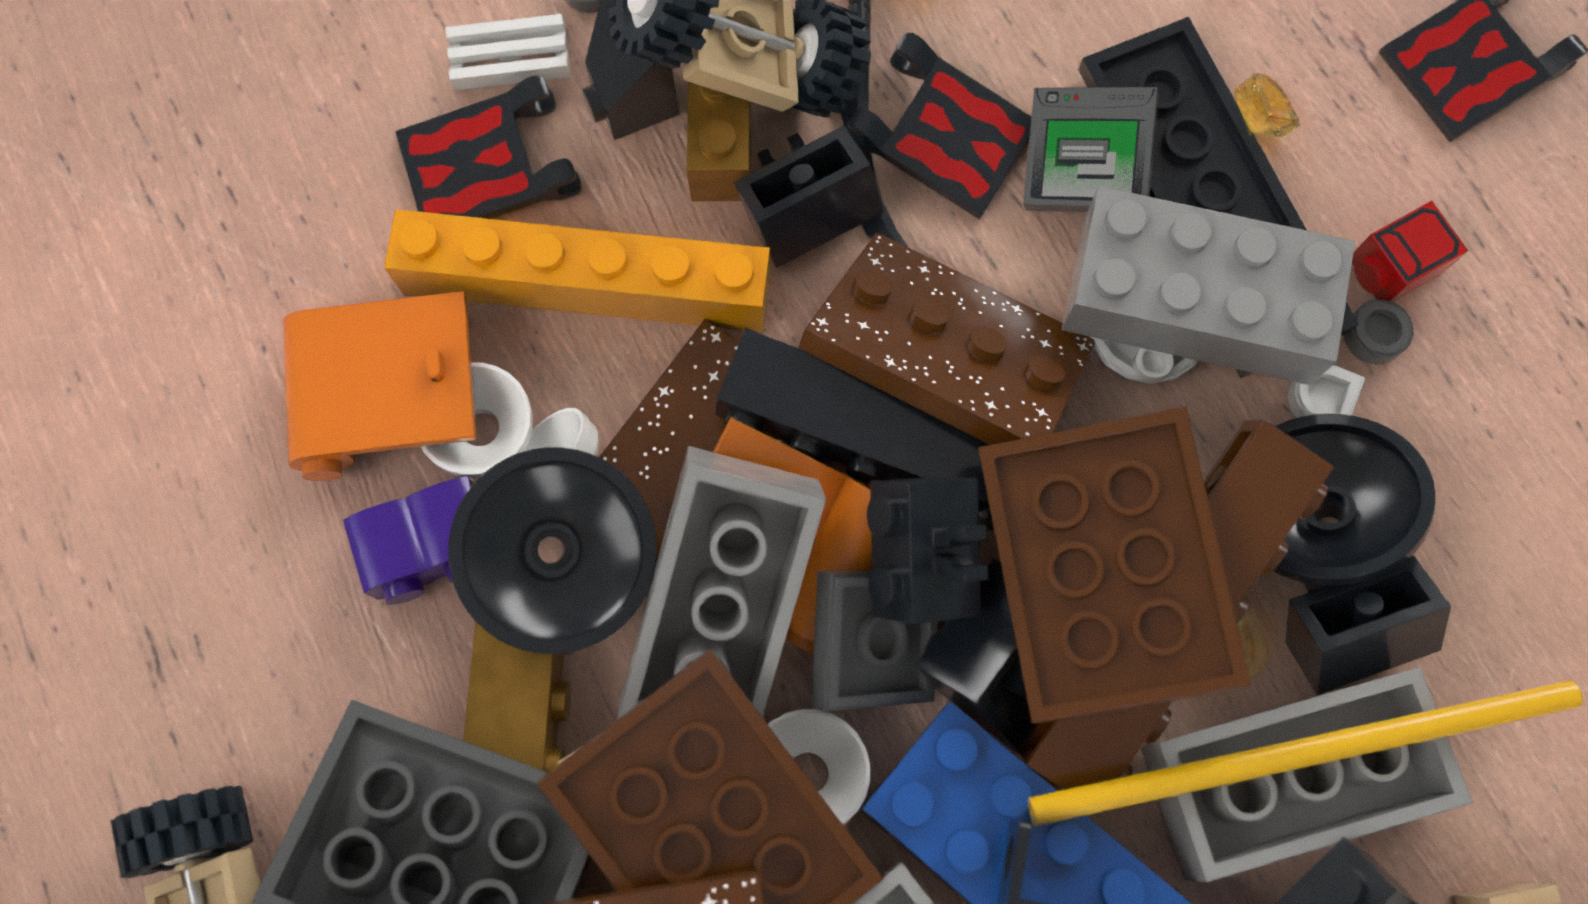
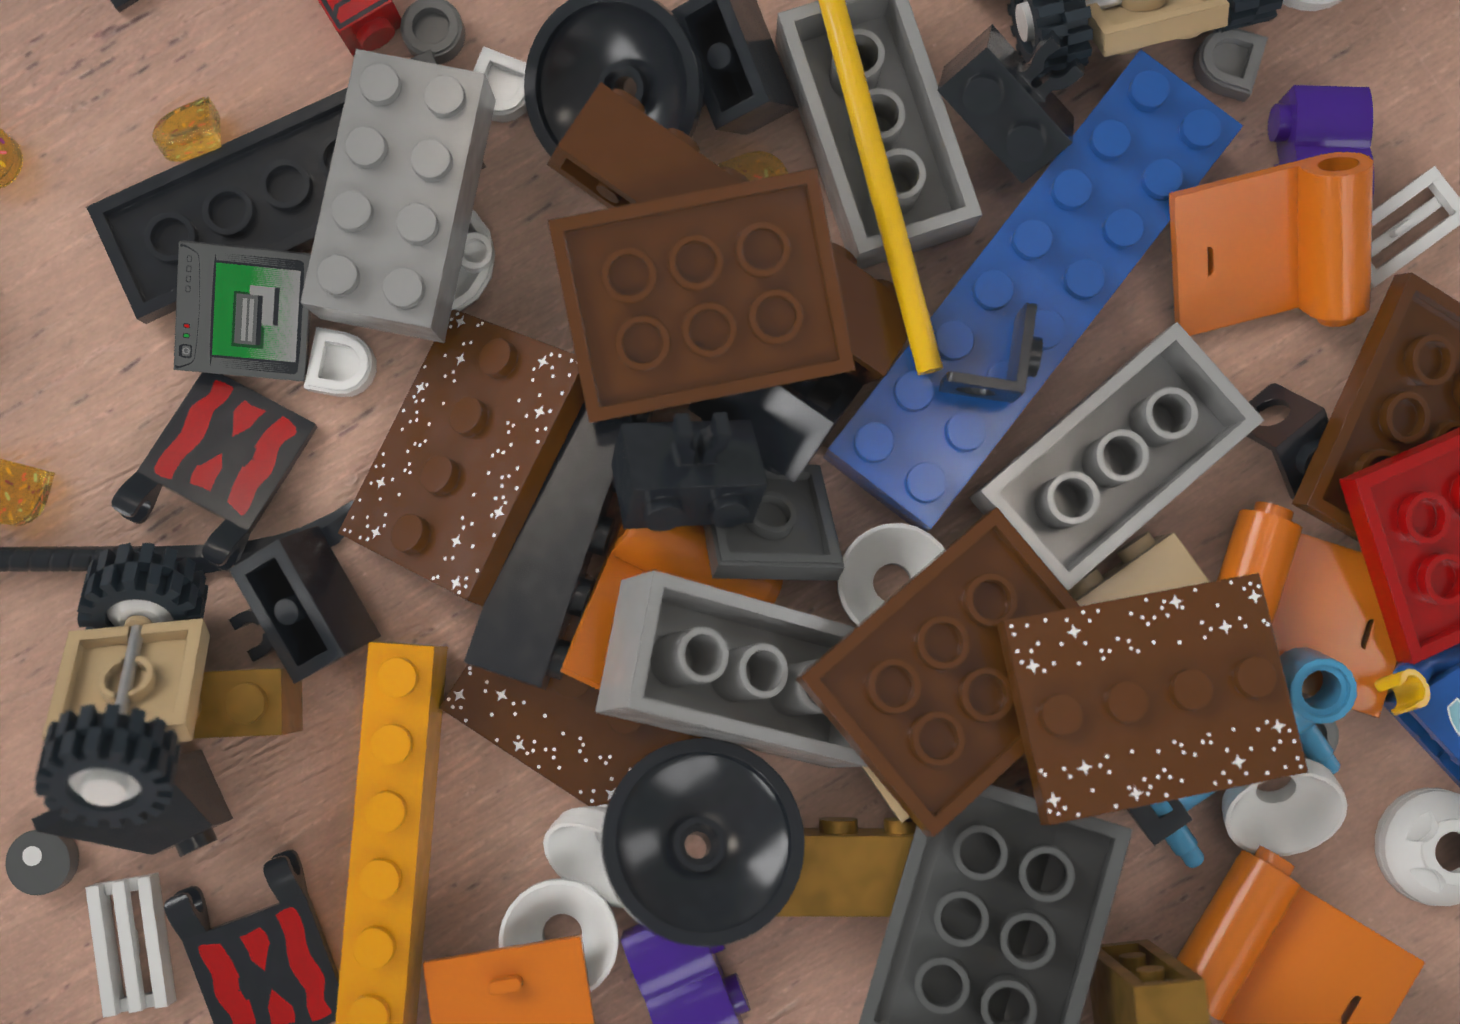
camera: 95 degrees left, 10 degrees up
(1040, 238) = (339, 364): none -> white tile

